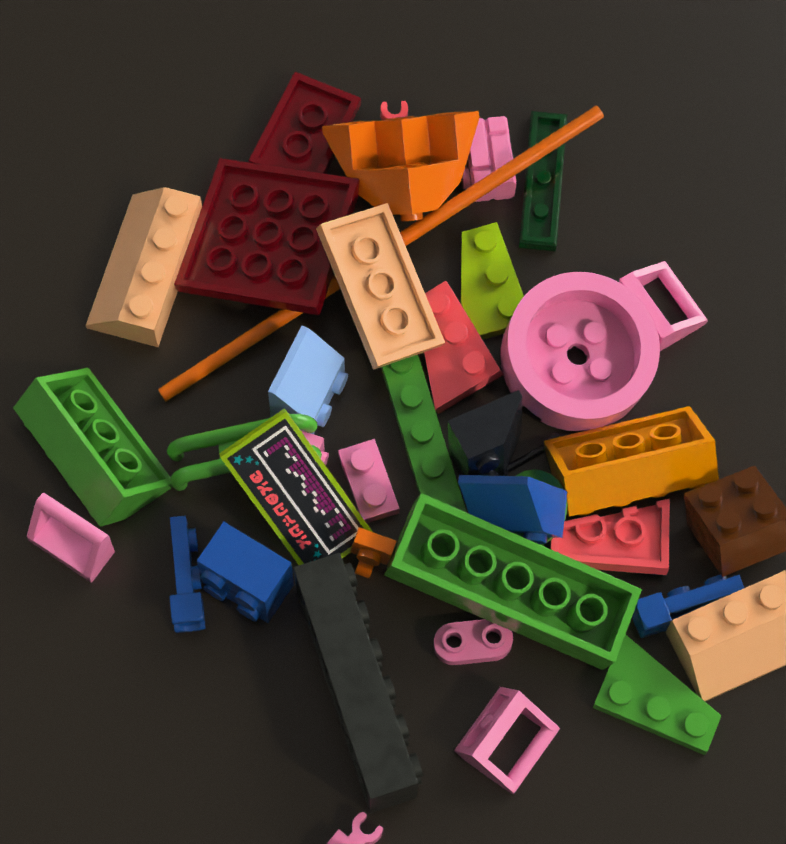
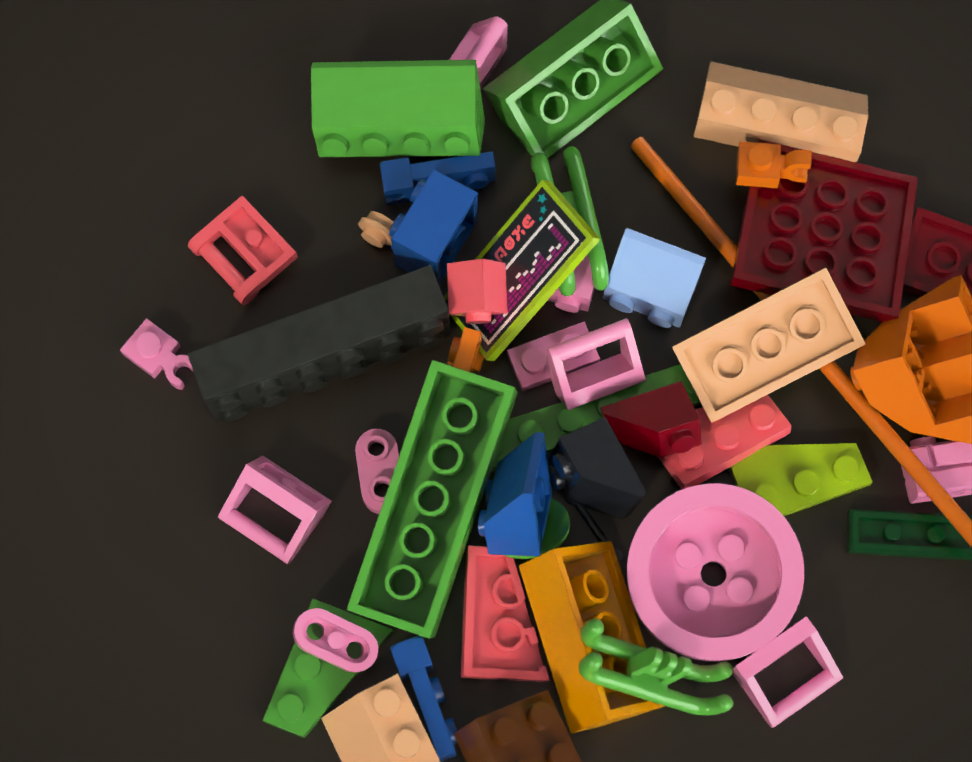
camera: 90 degrees right, 5 degrees up
(123, 601) = (397, 108): none -> bright green slope
(206, 278) = (764, 165): none -> orange plate
(235, 632) = (376, 229): none -> light nougat plate
(239, 753) = (253, 240): none -> coral plate
(315, 531) = (477, 289): none -> coral brick
(389, 437) = (601, 377): none -> bright pink tile
(443, 385) = (656, 421): none -> dark red slope
(639, 680) = (334, 640): none -> bright pink plate
(669, 407) = (651, 672): none -> bright green piece

